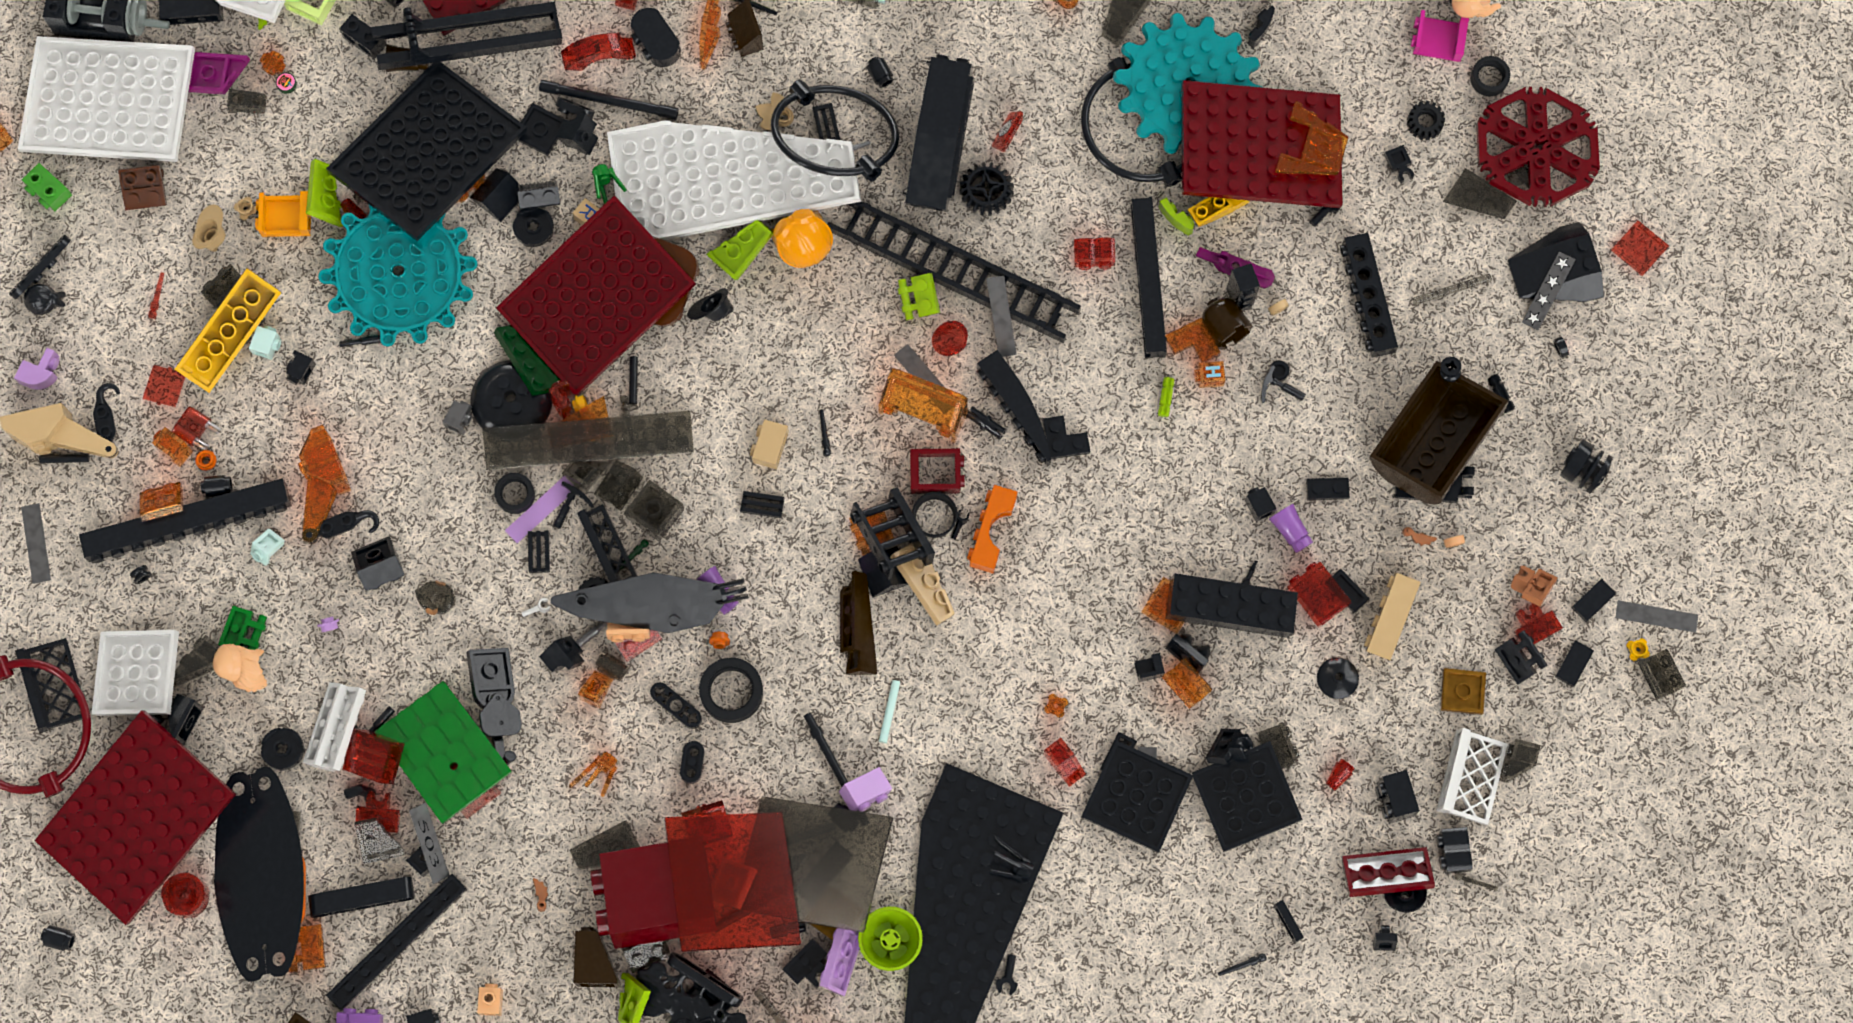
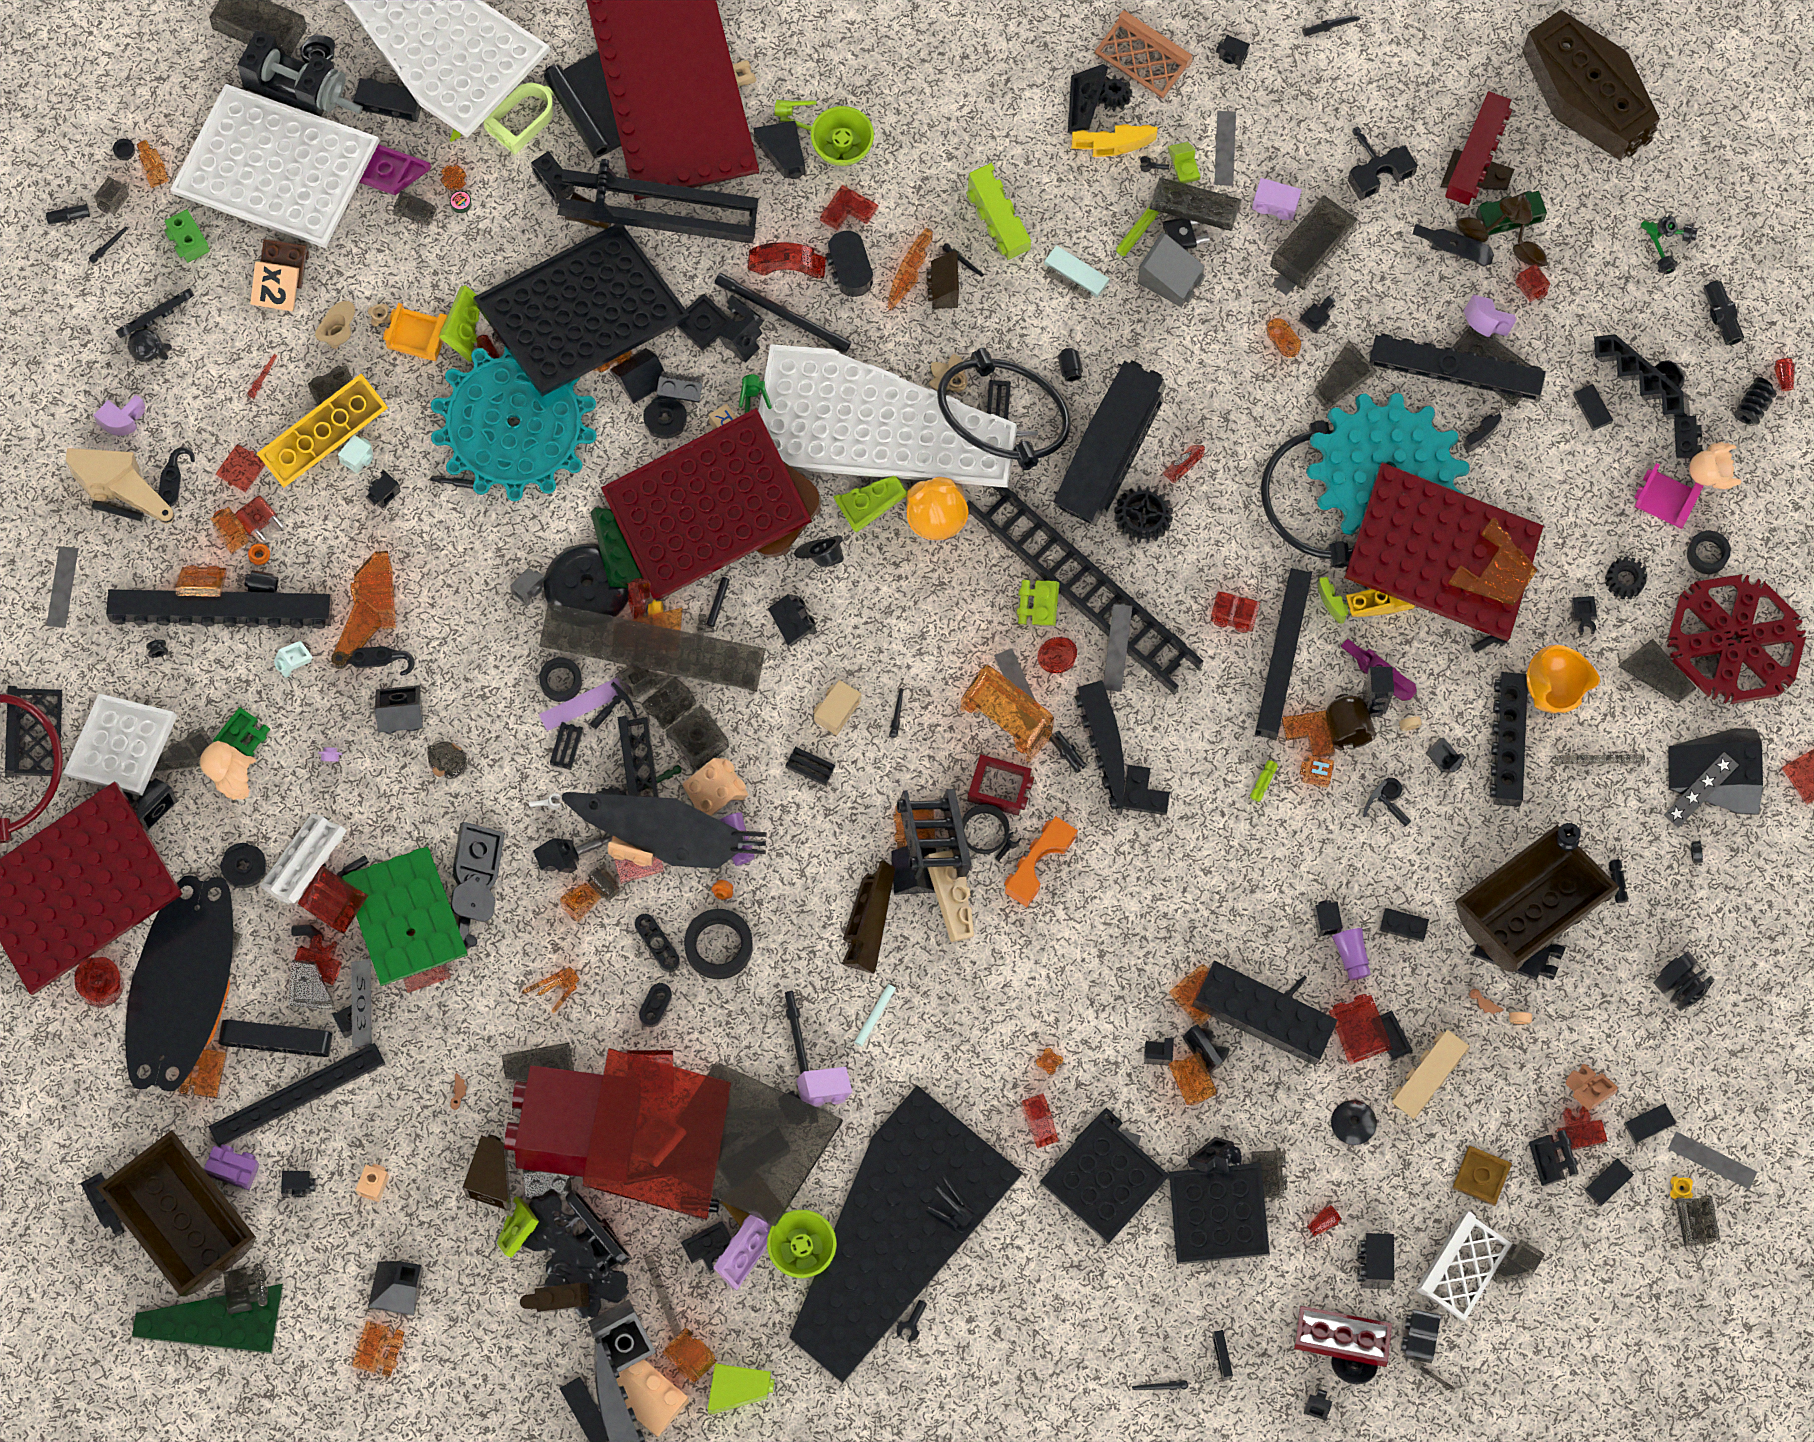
camera: 15 degrees right, 5 degrees down
(141, 210) = (274, 286): none -> light nougat tile
(683, 549) = (715, 786): none -> light nougat bracket
(705, 376) = (792, 618): none -> black bracket
(1318, 328) = (1445, 756): none -> black bracket
(1398, 228) = (1560, 679): none -> light orange piece

